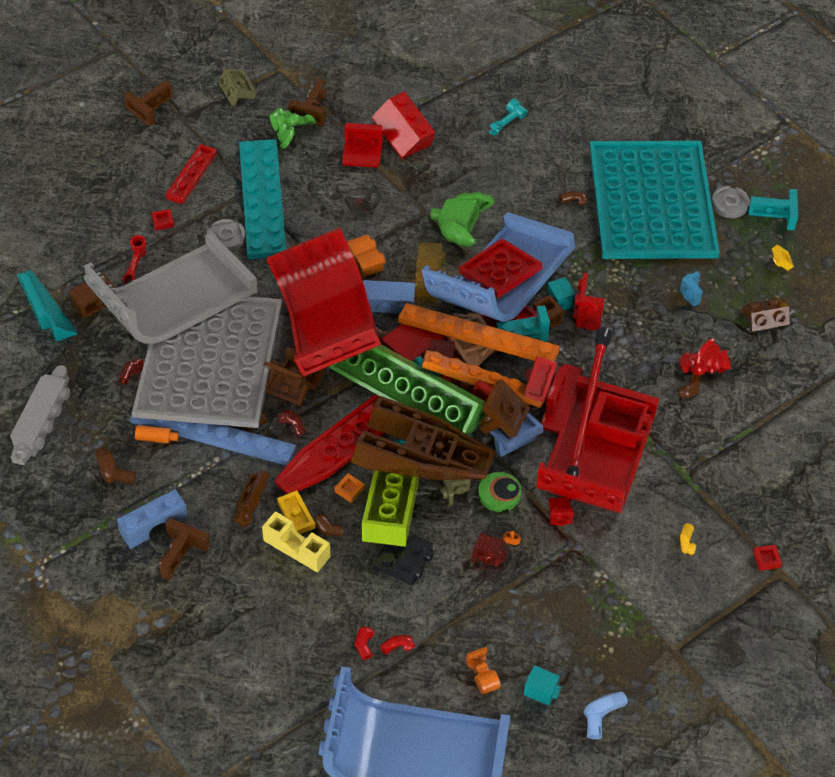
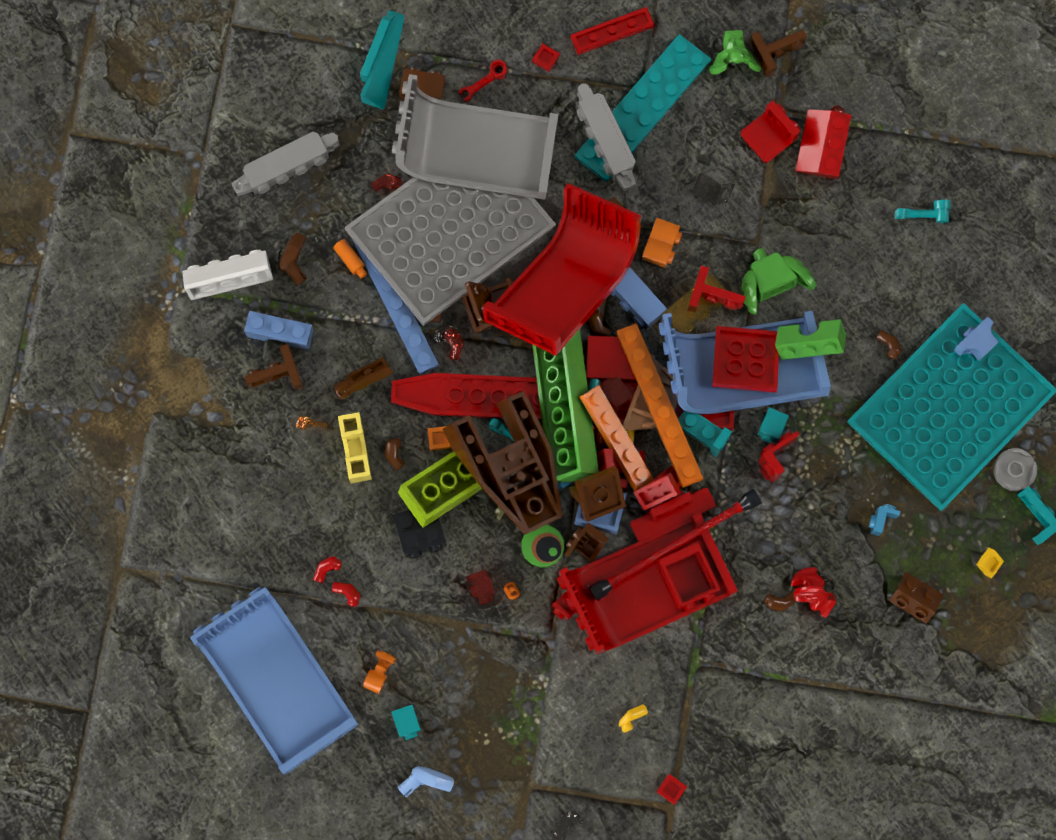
camera: 45 degrees right, 25 degrees up
(72, 516) = (227, 274): none -> white slope
(229, 233) = (570, 123): light grey tile -> none
(237, 562) = (303, 423): none -> clear orange hand
(258, 221) = (607, 136): none -> light grey hinge
(296, 511) = (382, 422): yellow plate -> none
(429, 250) = (713, 294): none -> red bracket
(521, 232) = (826, 340): none -> bright green arch
(530, 454) = (587, 542): none -> reddish brown bracket
(553, 310) = (744, 421): reddish brown brick -> none
(625, 147) = (978, 340): none -> medium blue brick

